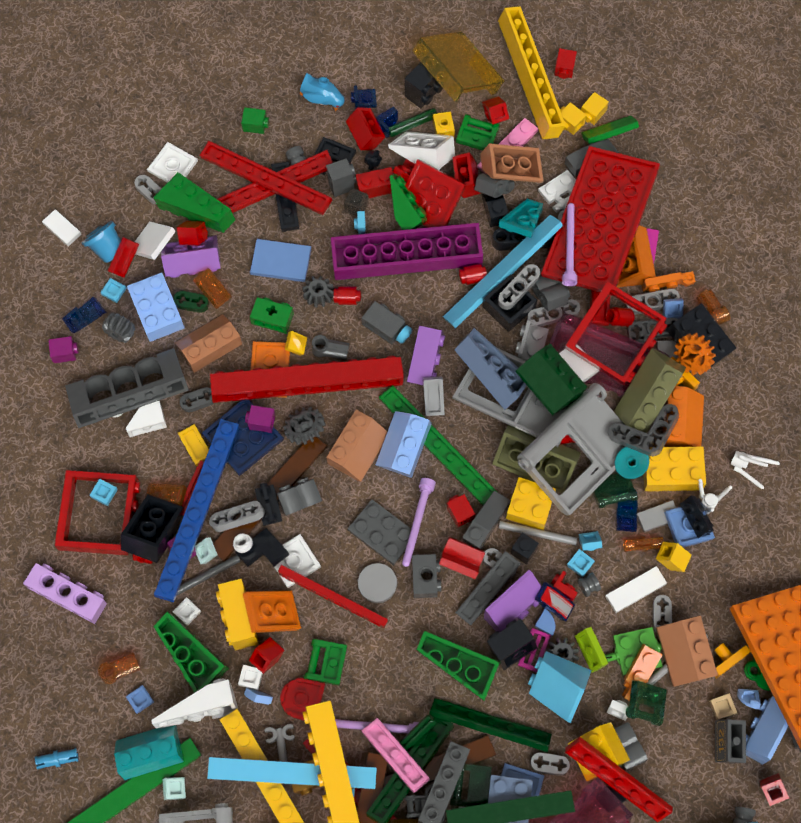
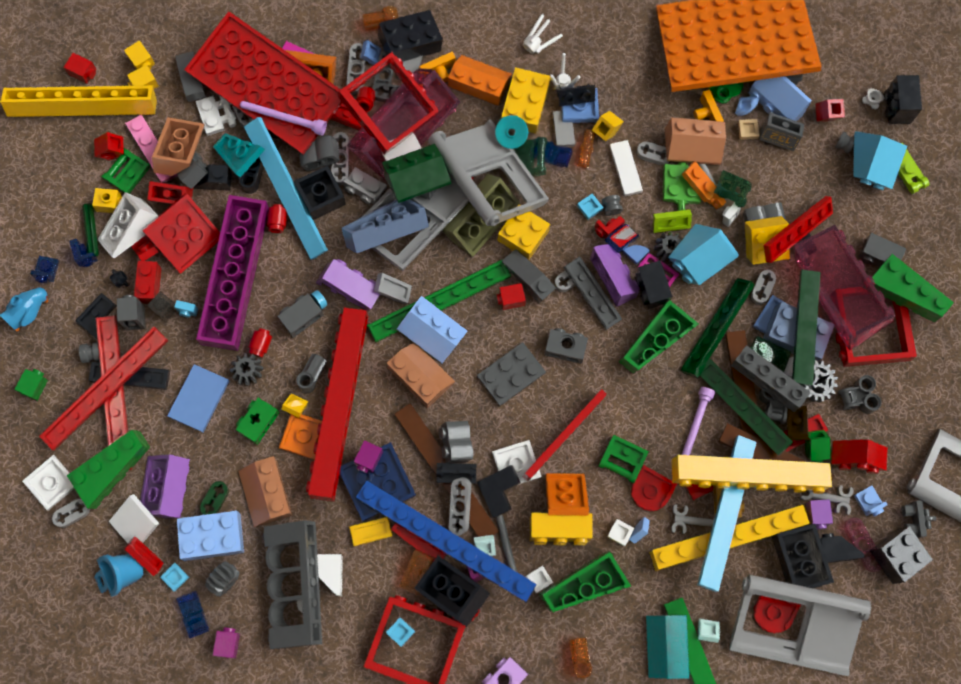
camera: 80 degrees left, 5 degrees up
(61, 227) = (83, 617): white tile -> none
(139, 699) = (614, 645): medium blue tile -> none
(192, 232) = (140, 478): red brick -> none
(196, 395) = (319, 518): dark grey beam -> none
(212, 288) = (208, 473): clear orange plate -> none
(212, 700) = (639, 571): white wedge -> none
(239, 540) = (483, 507): white plate -> none
(266, 655) = (605, 511): red brick -> none
(304, 425) = (387, 417): dark grey gear -> none
(365, 129) = (83, 276): red brick -> none
(377, 583) = (559, 392): light grey tile -> none
(395, 755) = (729, 415): bright pink tile -> none
(406, 210) = (190, 259): green slope -> none
(417, 732) = (716, 398): dark green axle -> none
(421, 86) = (53, 202): black brick -> none
(426, 487) = (479, 321): lavender piece -> none
(457, 64) = (48, 165): clear yellow panel -> none
(461, 557) = (559, 308): panel -> none
(520, 278) = (307, 162): light grey beam -> none
(524, 548) = (564, 250): black brick -> none
(538, 533) = (551, 234): light grey bar -> none
(590, 541) = (572, 192): medium azure plate -> none
(610, 129) = (167, 50): green tile -> none
(647, 439) = (494, 112): dark grey beam -> none
(649, 391) = (452, 93): olive slope -> none
(670, 281) = (343, 46): orange hinge -> none
(695, 353) = (428, 42): orange gear -> none

